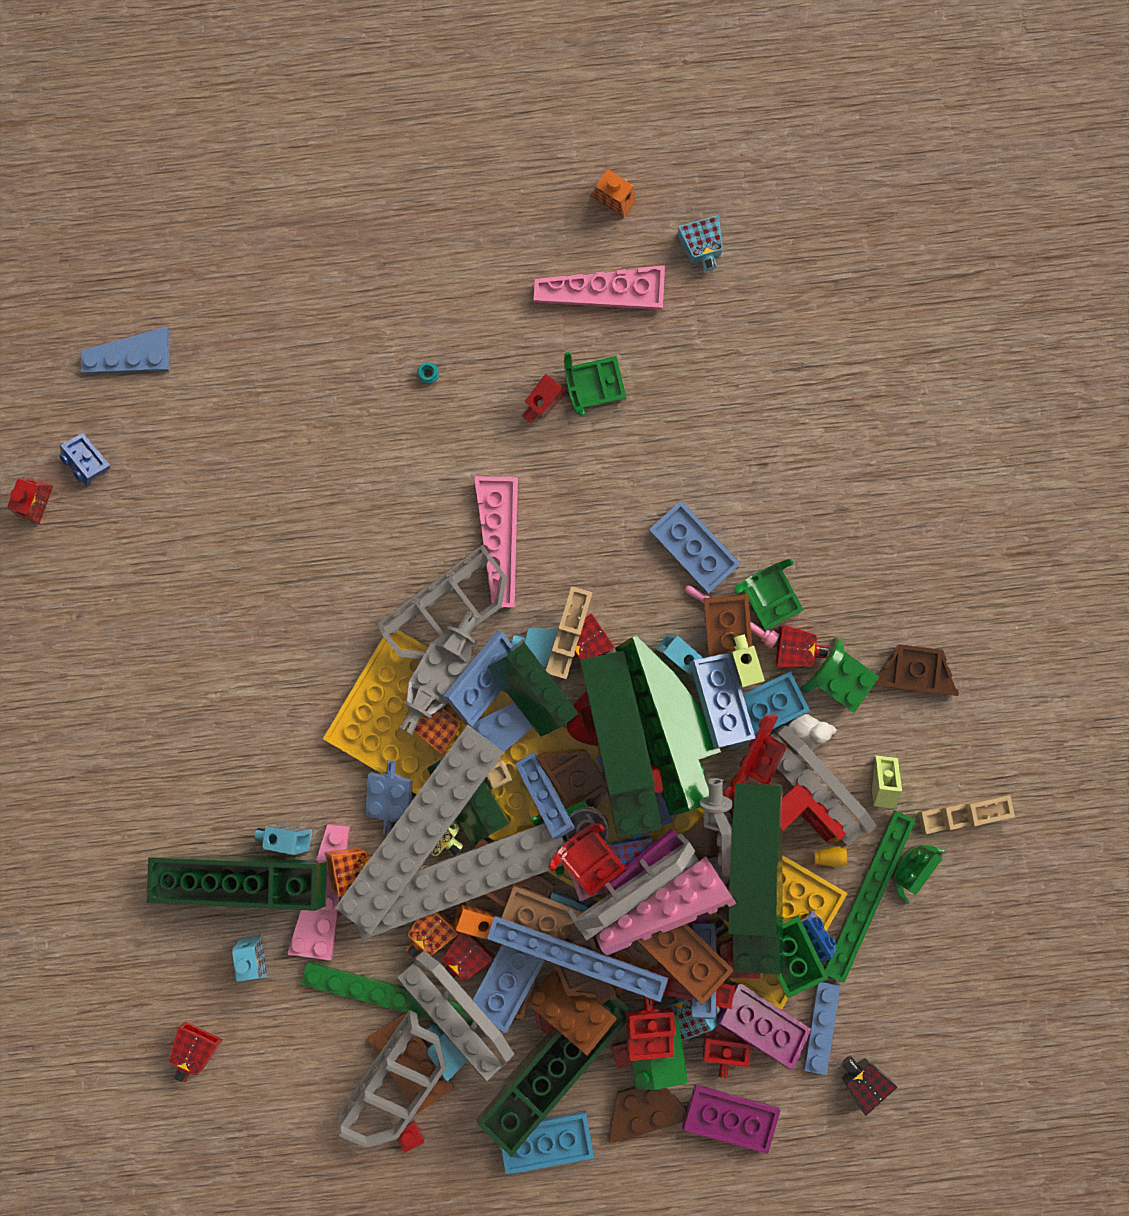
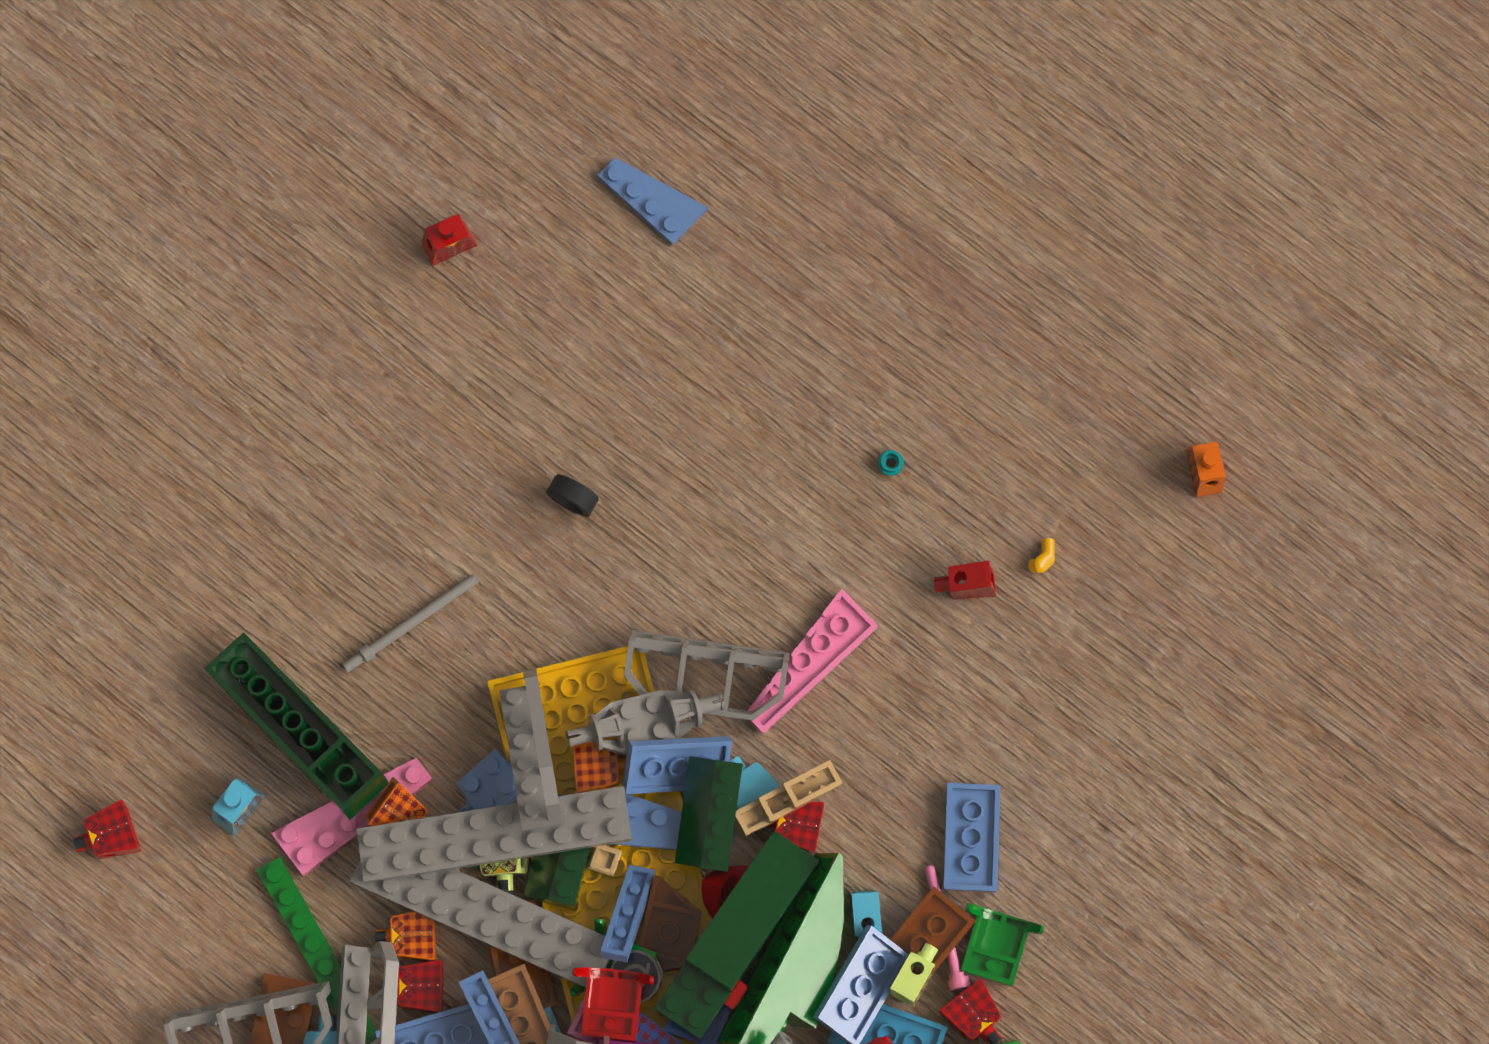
camera: 35 degrees right, 10 degrees down
(83, 459) = (525, 249): bracket -> none
(235, 791) = (368, 652): none -> light grey bar
(260, 579) = (572, 495): none -> black tyre
(284, 838) = (370, 732): medium azure torso -> none
(391, 763) = (530, 754): none -> light grey plate
(468, 920) = (455, 956): orange torso -> none
(574, 340) = (1045, 559): none -> yellow arm
(593, 383) = (1025, 611): green piece -> none
(619, 289) = (1128, 553): bright pink wing -> none
(702, 241) = (1242, 584): torso -> none

